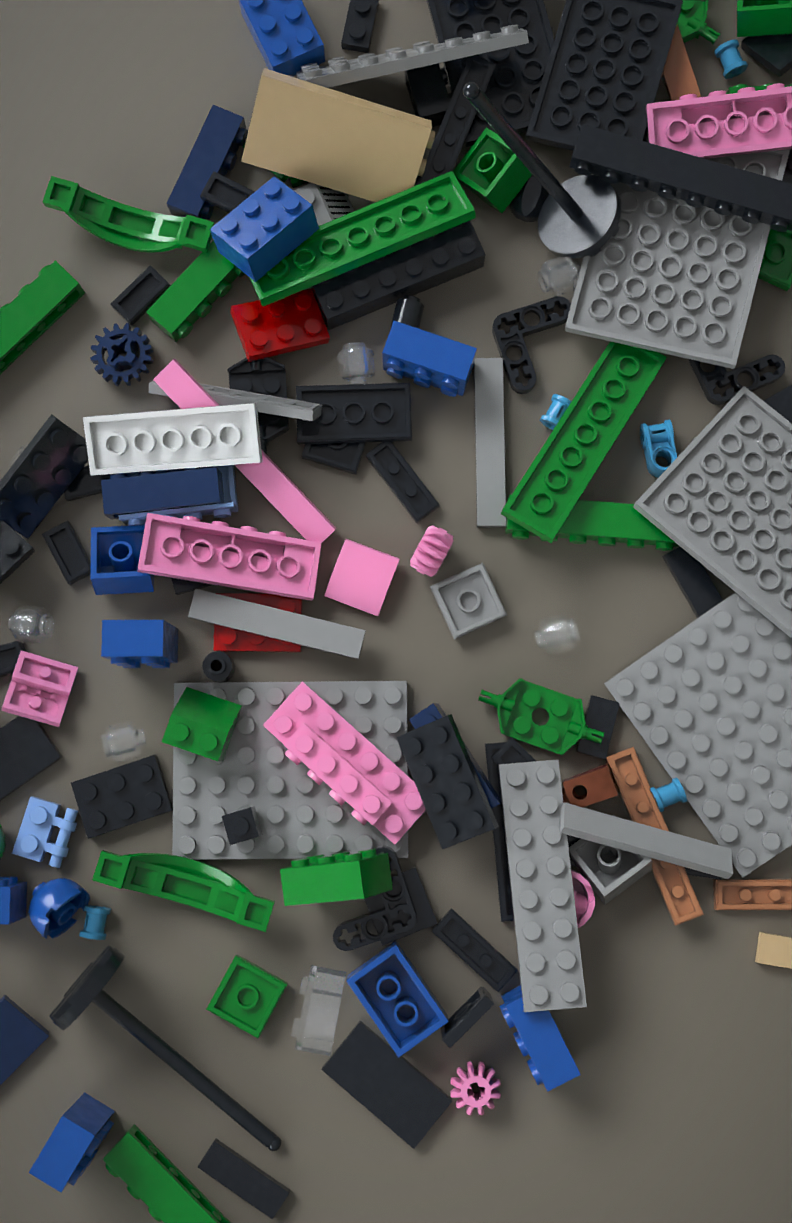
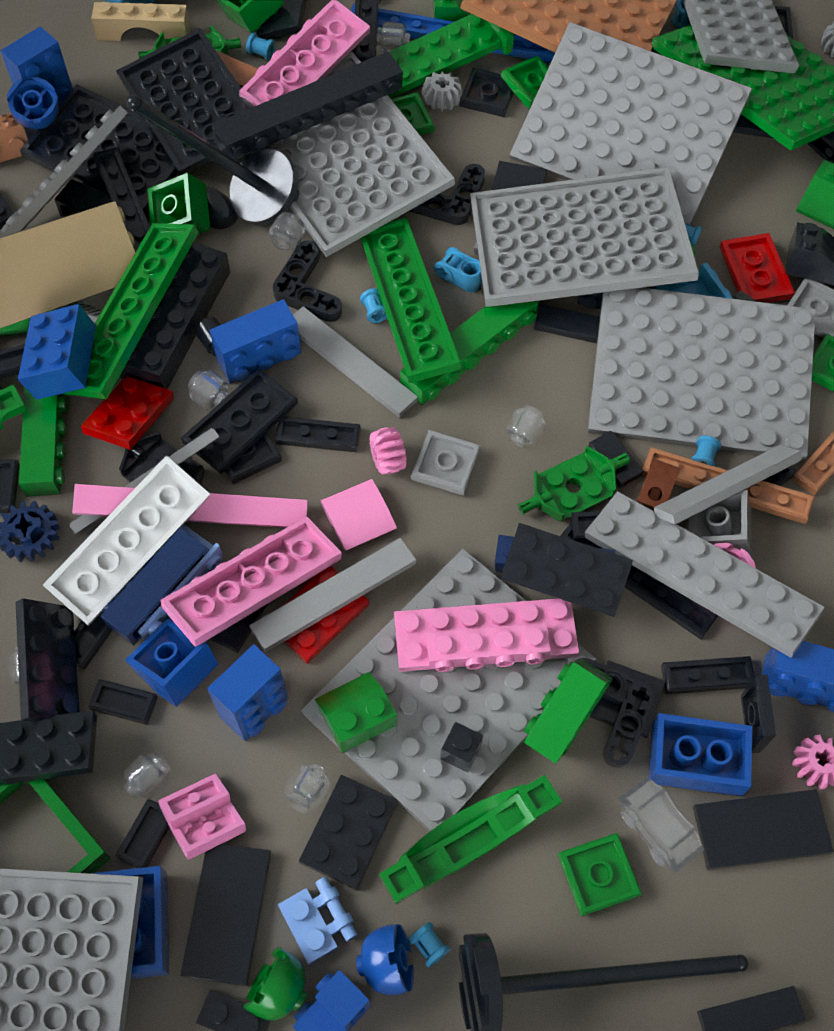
camera: 50 degrees left, 20 degrees down
(226, 671) = (323, 663): black brick -> none

